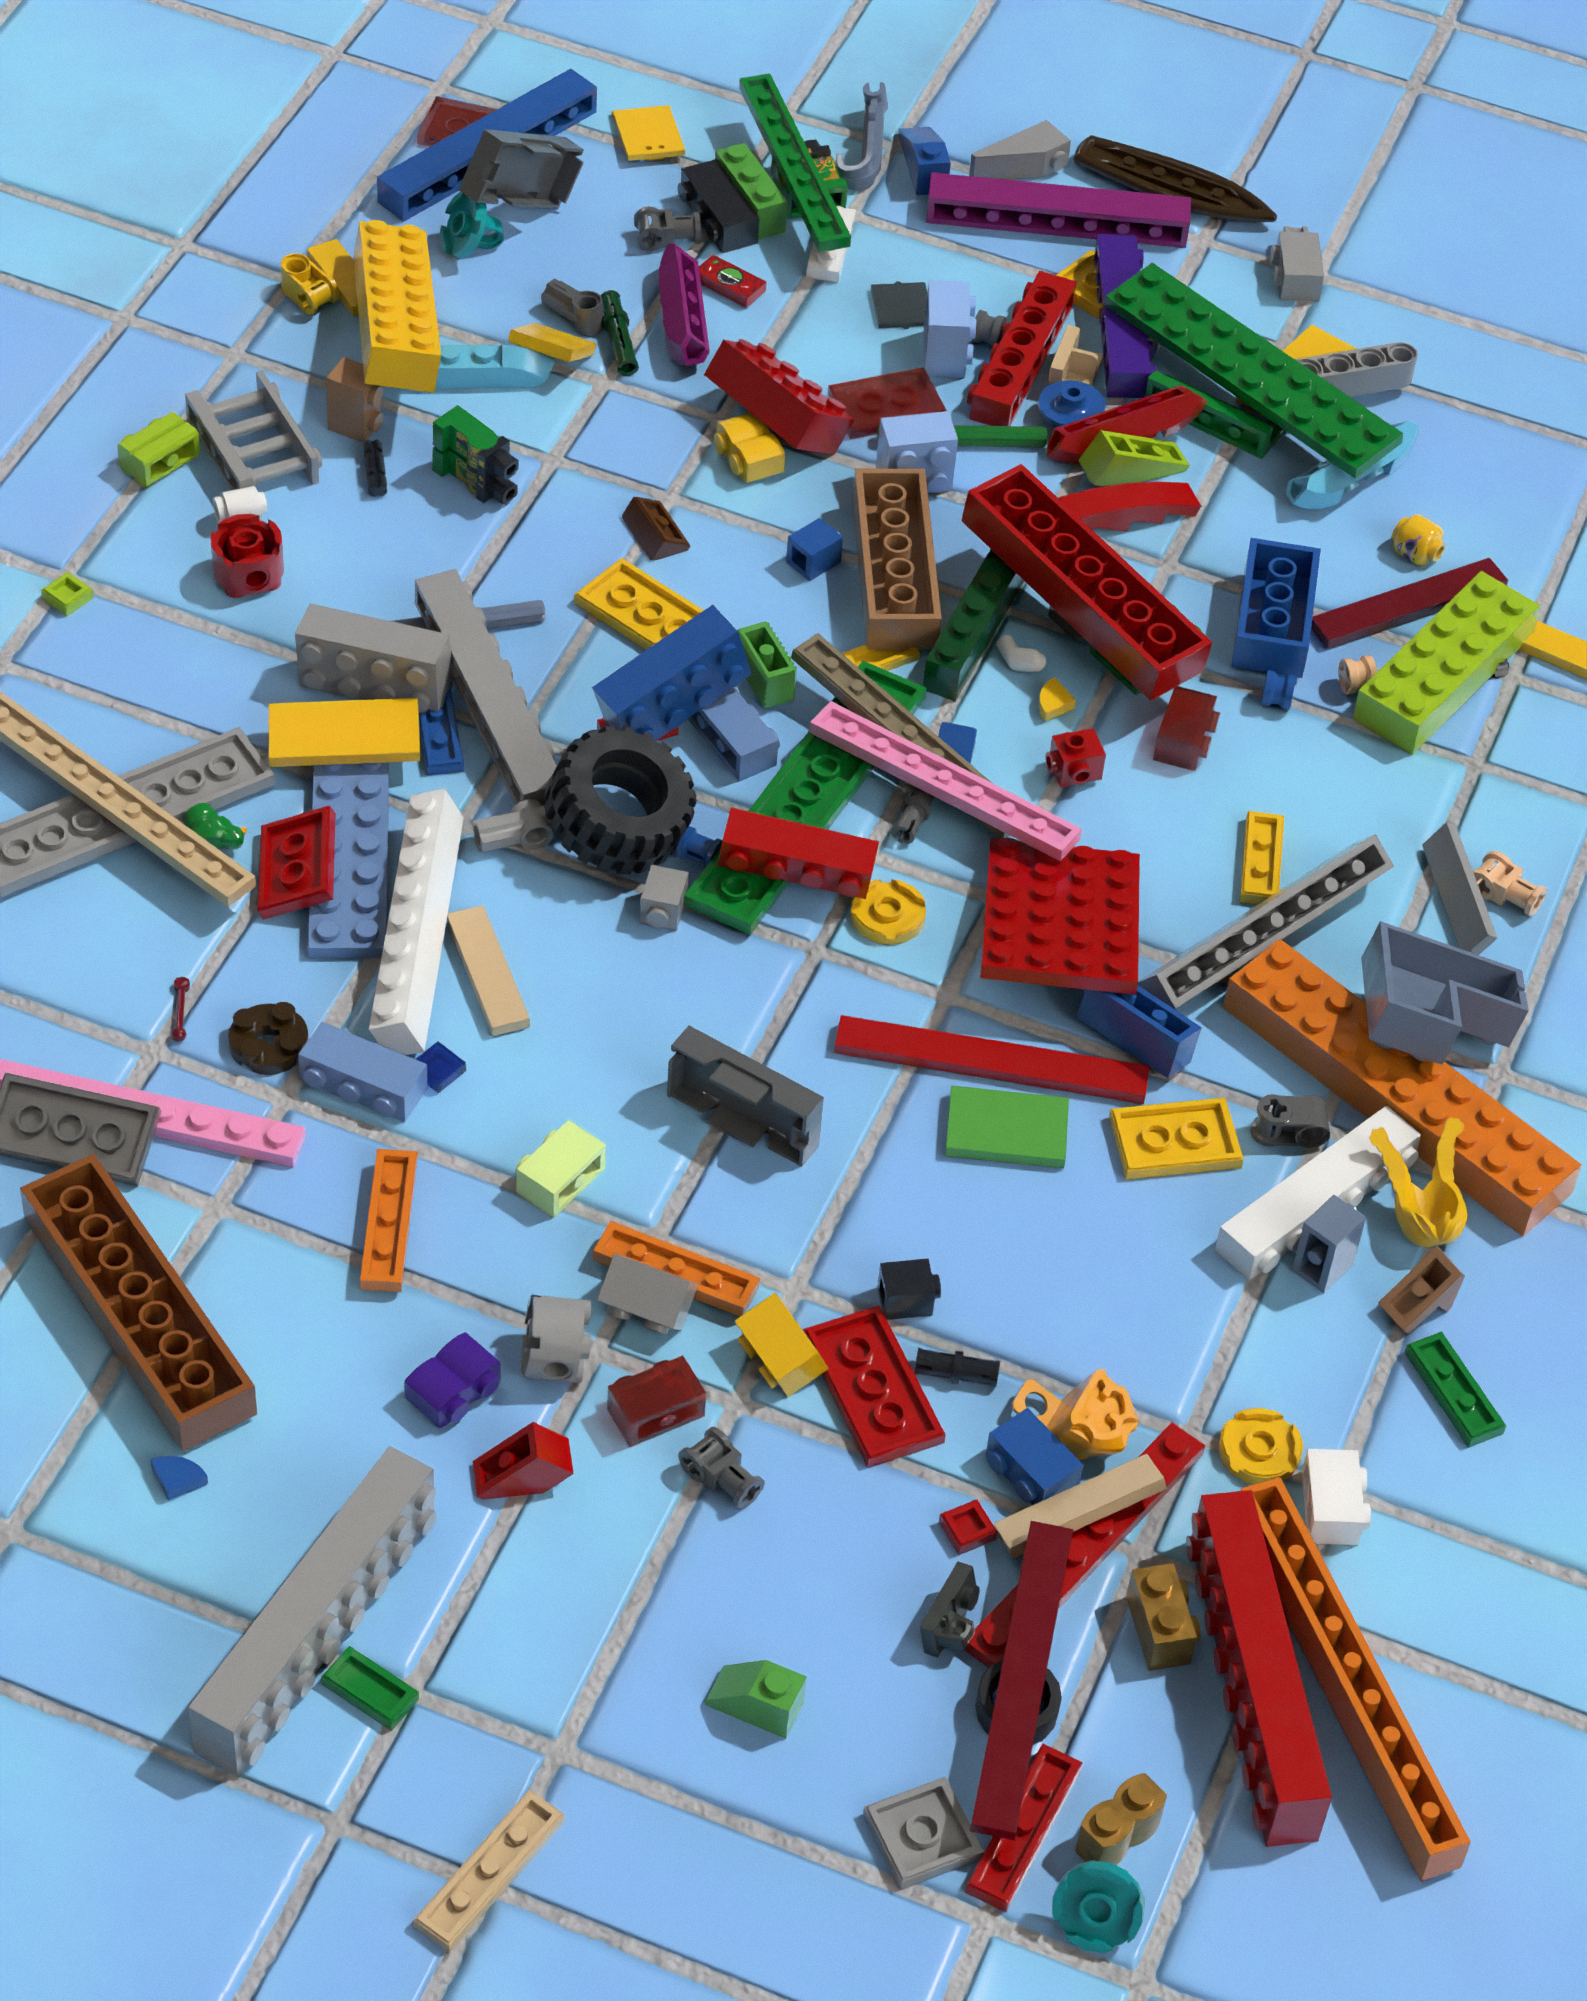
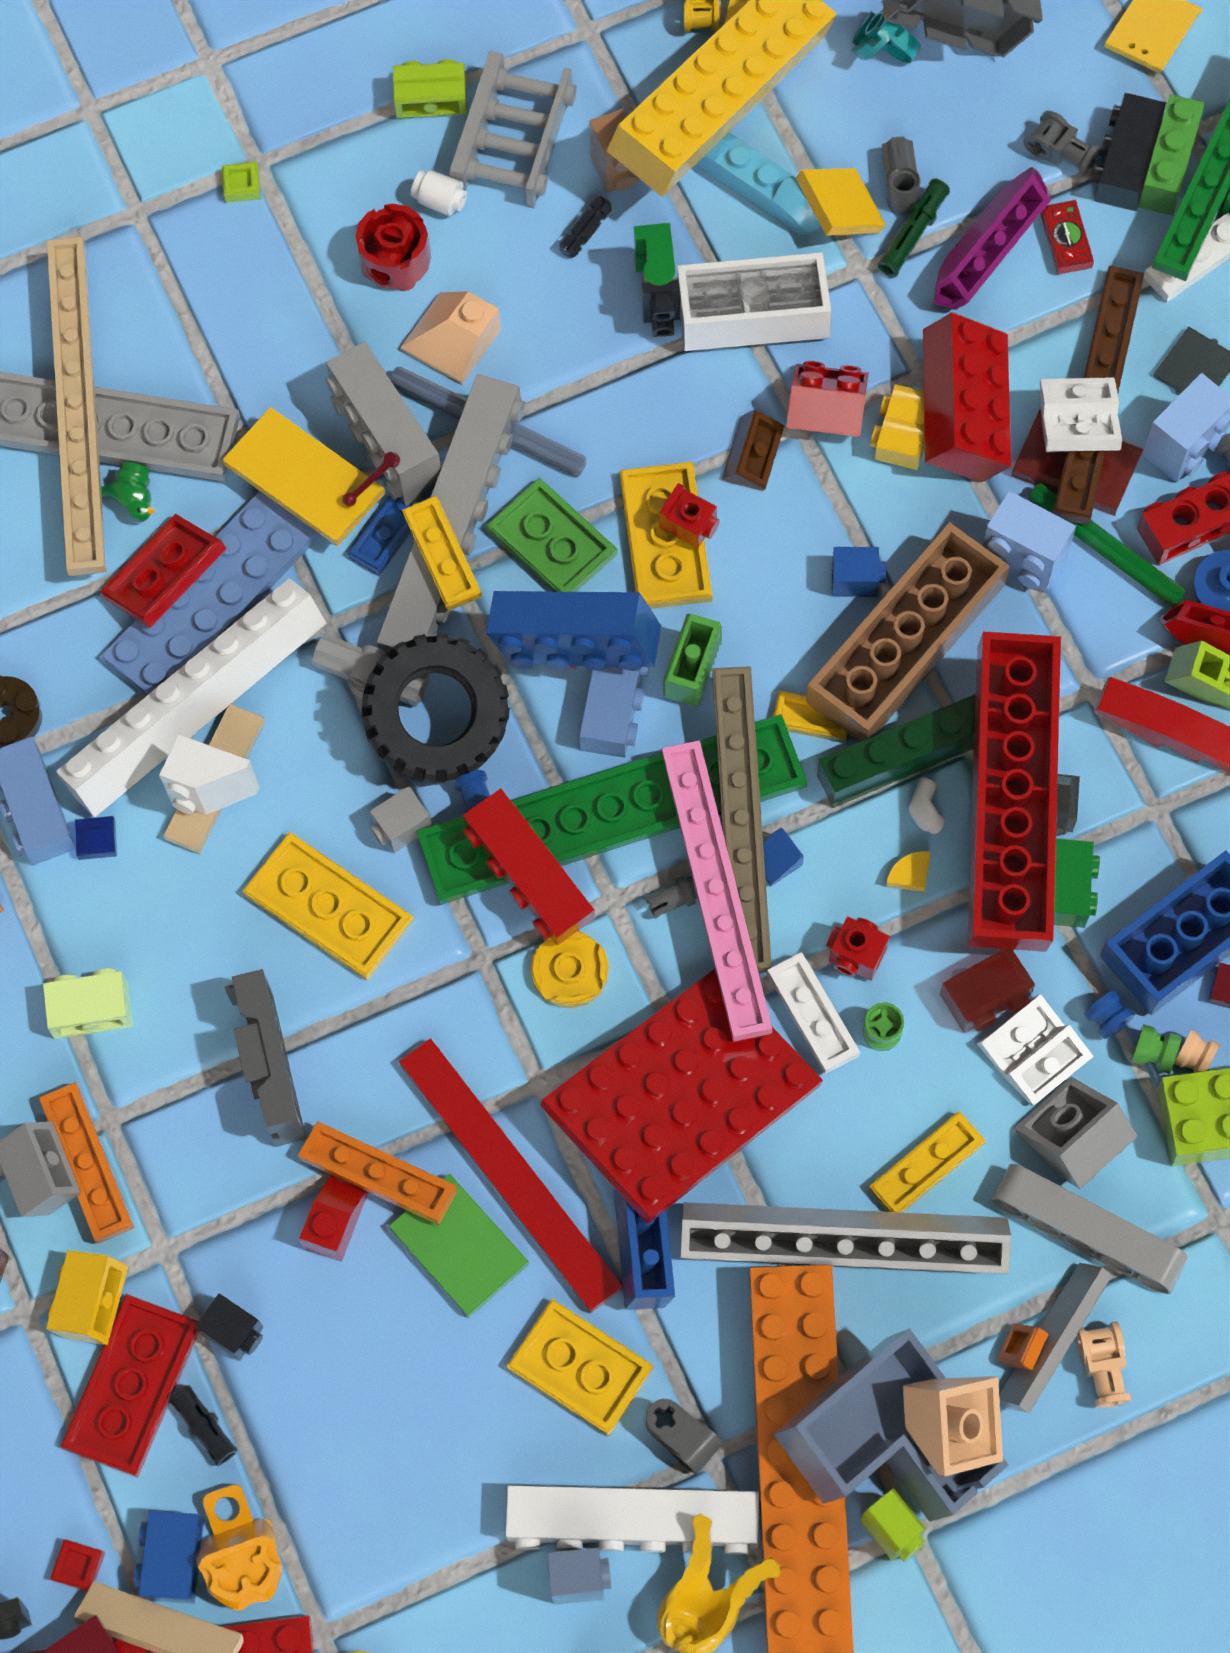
camera: 50 degrees right, 20 degrees up
(352, 579) = (454, 334): none -> light nougat slope
(420, 657) = (390, 460): none -> dark red hinge
(496, 948) = (206, 777): none -> white slope
(514, 704) = (442, 553): none -> yellow tile
(565, 431) = (754, 301): none -> brick
(566, 665) = (551, 538): none -> bright green tile
(664, 583) = (688, 528): none -> red brick
(667, 991) = (328, 905): none -> yellow tile
(677, 460) = (827, 398): none -> slope
(853, 345) = (1105, 360): none -> reddish brown tile
(866, 362) = (1080, 414): none -> white slope
(902, 1116) = (378, 1173): none -> orange plate
(904, 1172) = (333, 1218): none -> red slope
(1097, 821) = (813, 1013): none -> white plate
(1143, 794) = (884, 1018): none -> bright green wheel
(1252, 746) = (1035, 1050): none -> white slope
(1330, 688) = (1155, 1048): none -> bright green wheel
(1336, 767) = (1076, 1131): none -> light grey slope
(1407, 815) = (1090, 1229): none -> light grey beam
(1446, 910) = (1022, 1346): none -> orange tile
(1466, 951) = (955, 1422): none -> light nougat slope
(1495, 1058) = (894, 1526): none -> lime brick

